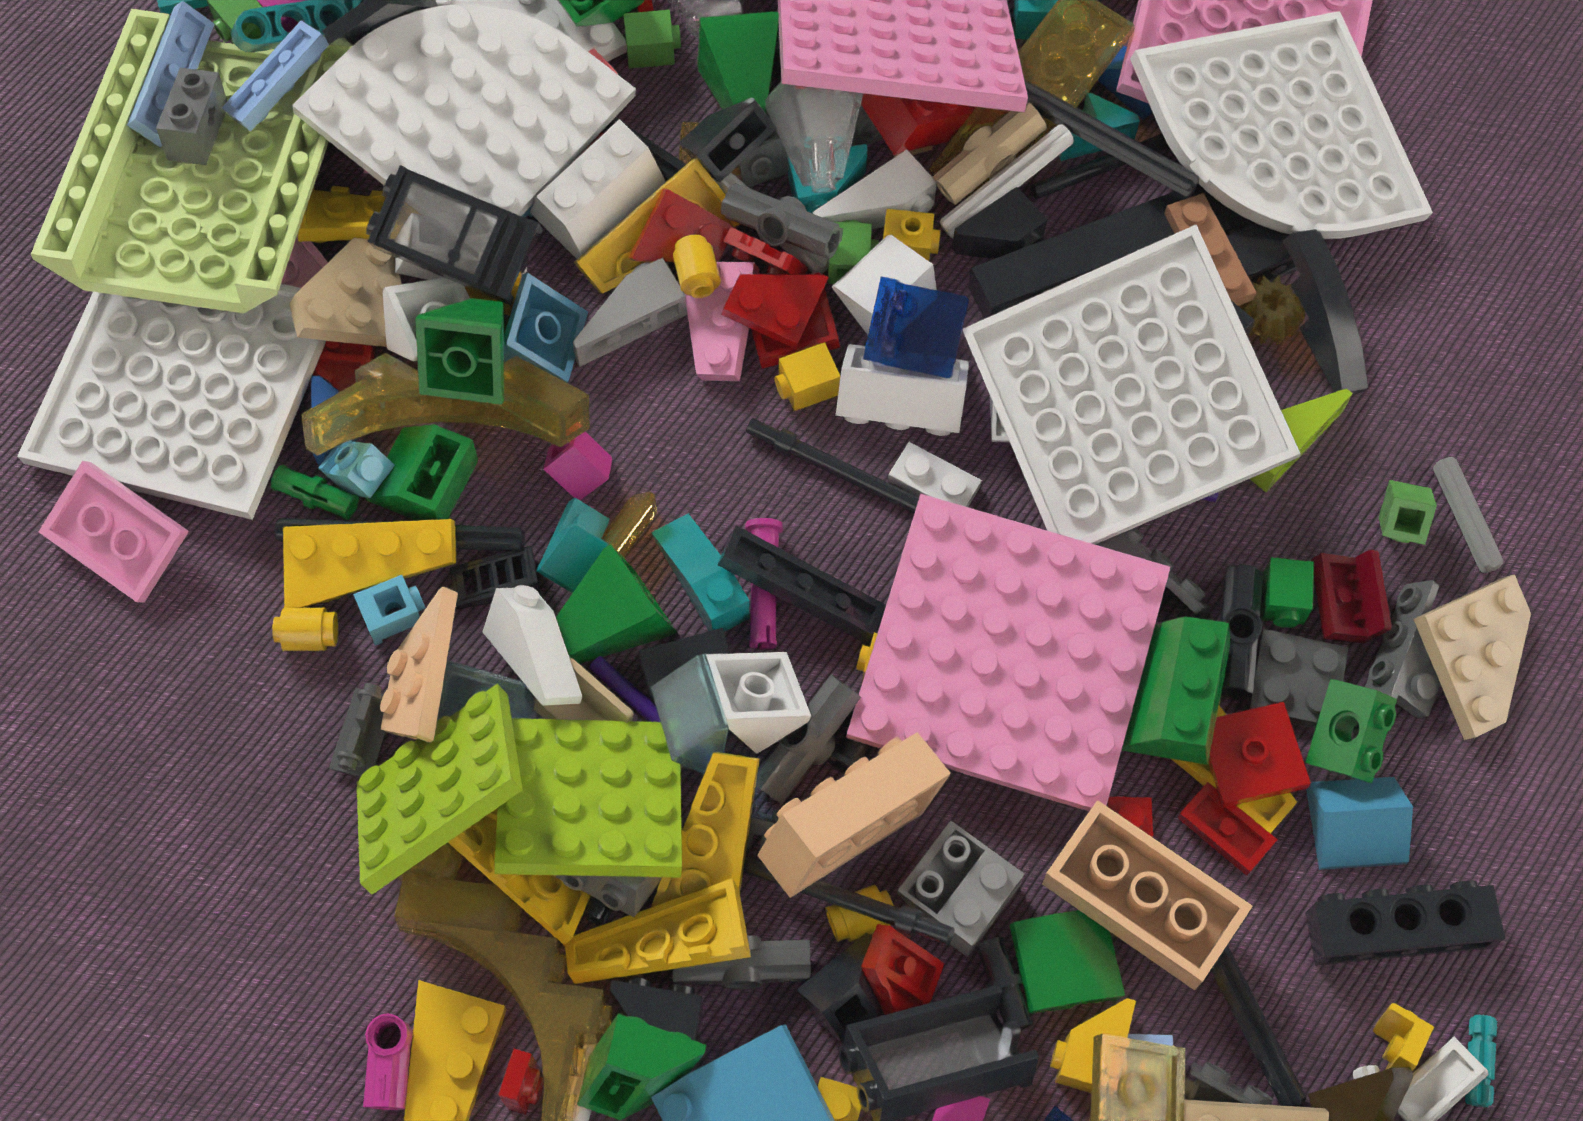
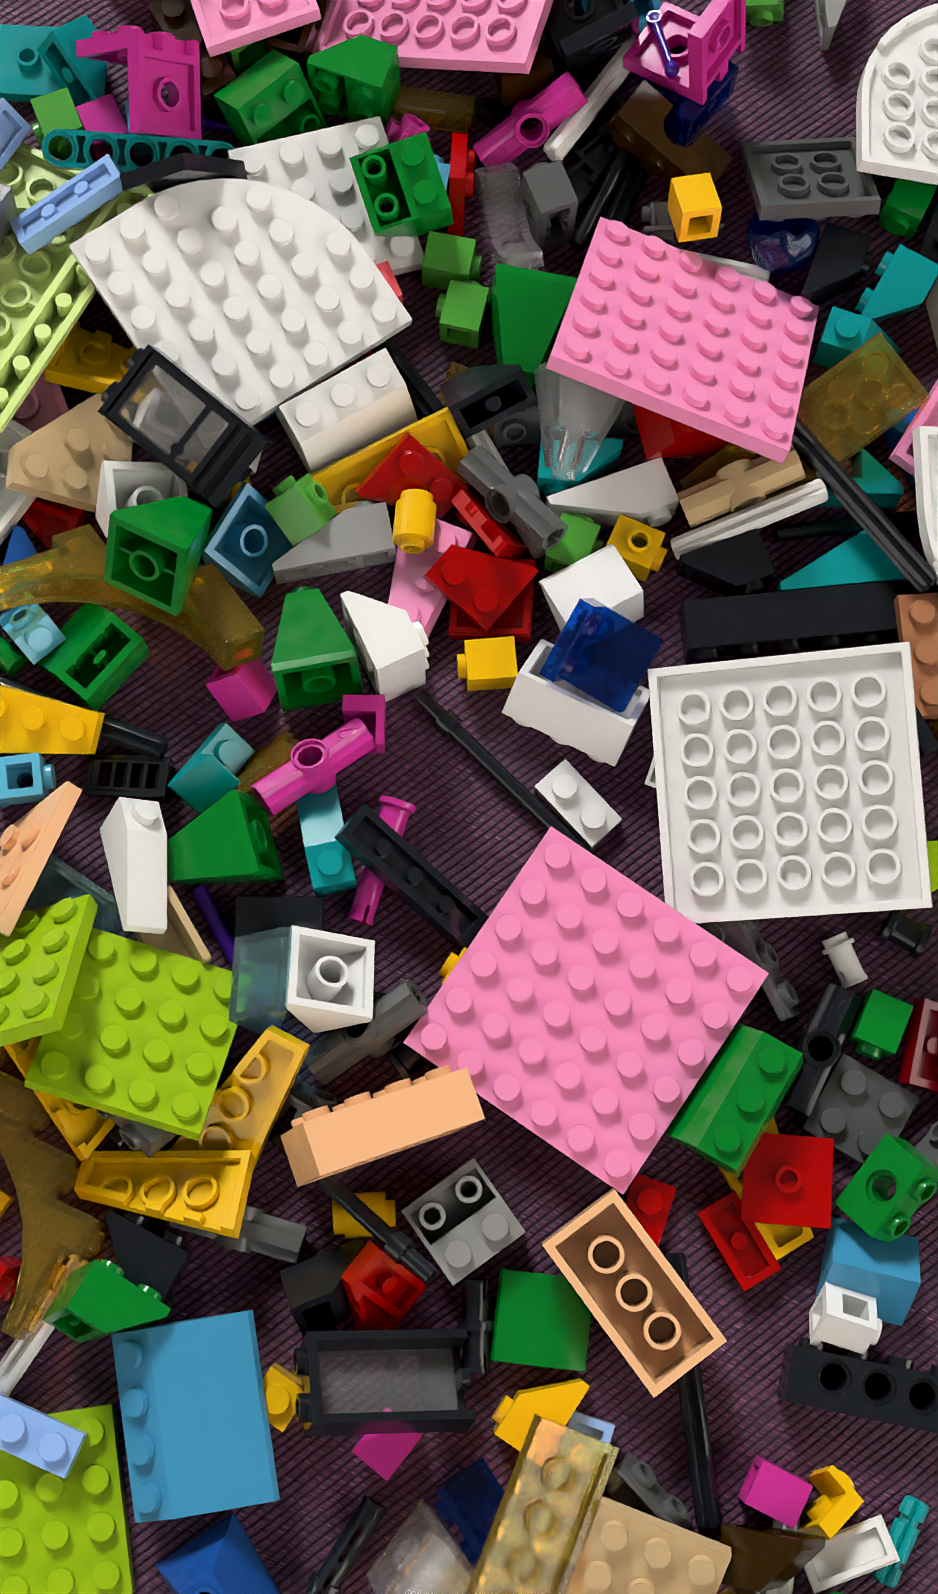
camera: 15 degrees right, 10 degrees up
(583, 284) = (300, 507): none -> bright green brick
(642, 413) = (312, 653): none -> green slope
(672, 513) = (313, 766): none -> dark pink piece
(677, 79) = (463, 312): none -> bright green brick
(706, 379) = (386, 644): none -> white slope
(707, 464) = (372, 712): none -> dark pink panel
(1113, 192) = (850, 563): none -> teal slope
(1233, 543) = (844, 959): none -> white pin
(1280, 504) = (904, 933): none -> black bush
(1346, 1046) = (775, 1491): none -> dark pink panel
(1353, 866) = (844, 1319): none -> white brick

